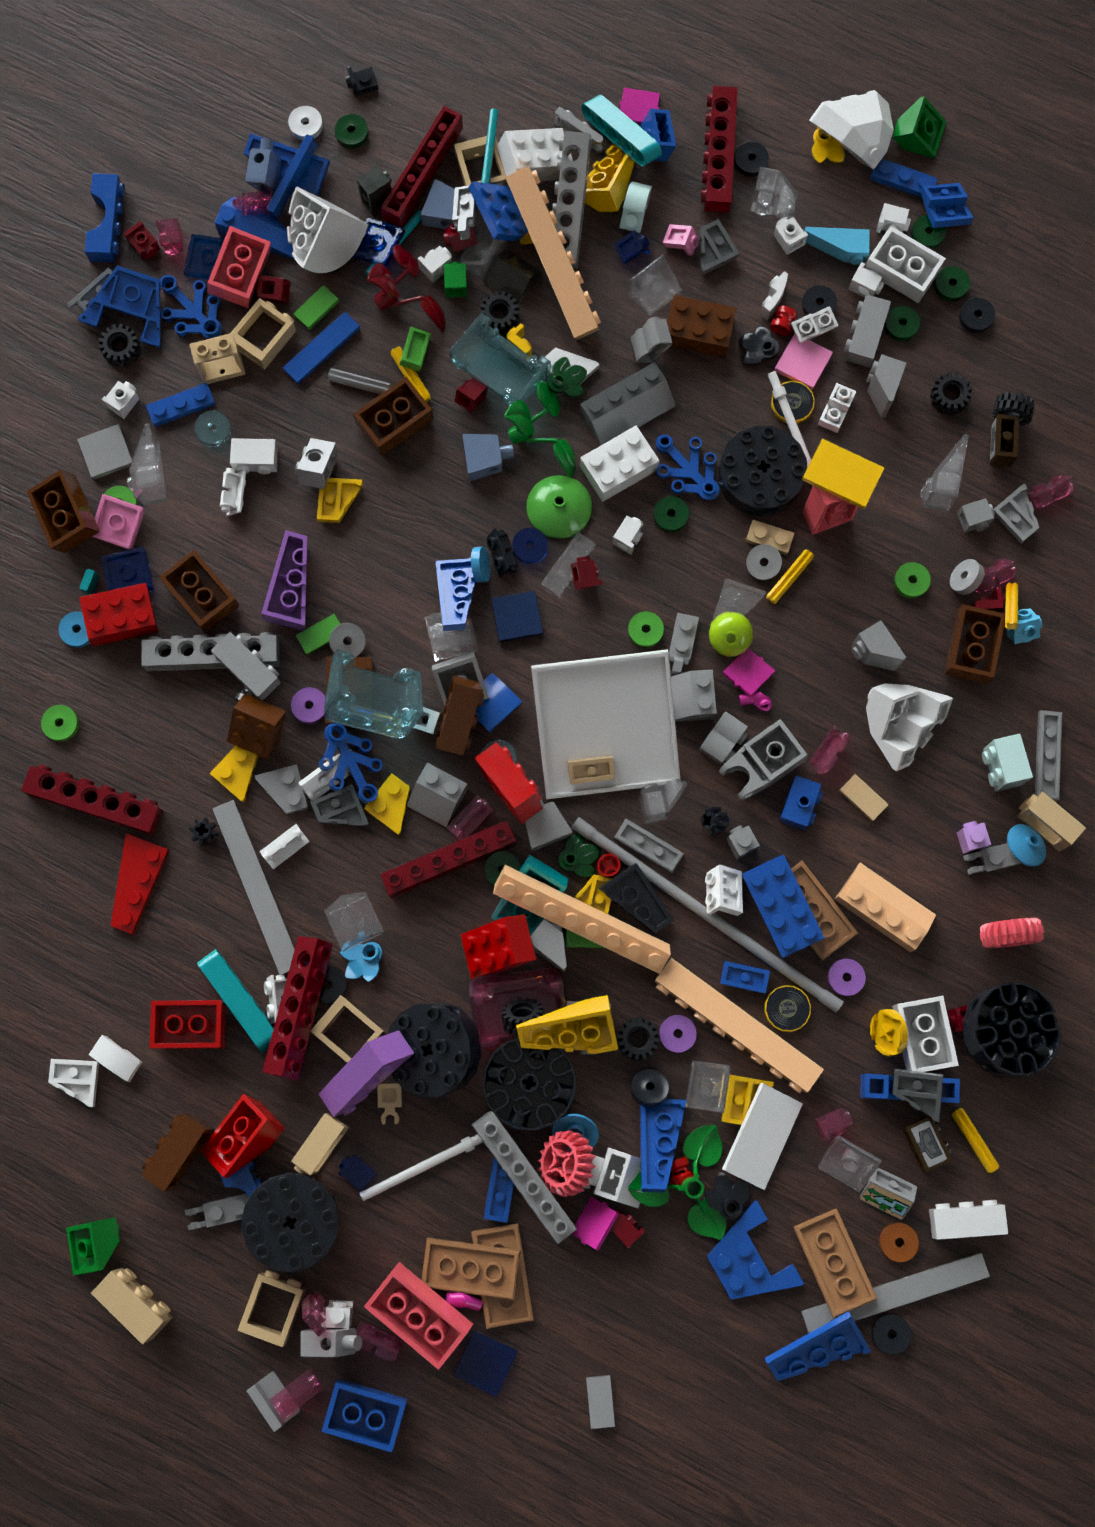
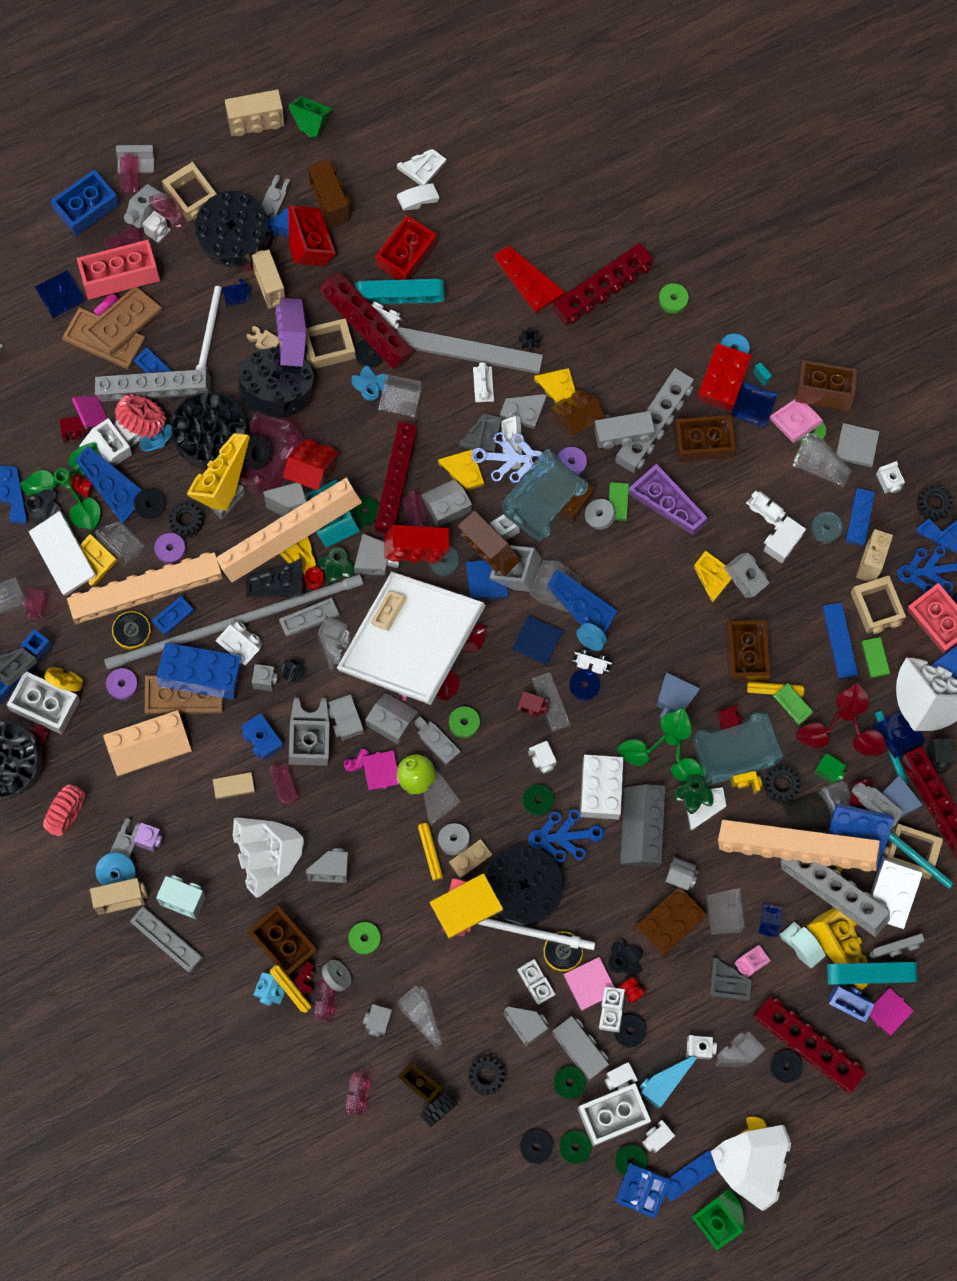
camera: 120 degrees right, 5 degrees down
(281, 289) = (908, 634): dark red brick -> none
(358, 381) = (794, 649): light grey axle -> none
(434, 263) = (854, 764): white brick -> none
(554, 519) = (597, 738): bright green dish -> none
(775, 295) = (660, 1004): white slope -> none
(1017, 514) = (357, 1054): light grey wing -> none

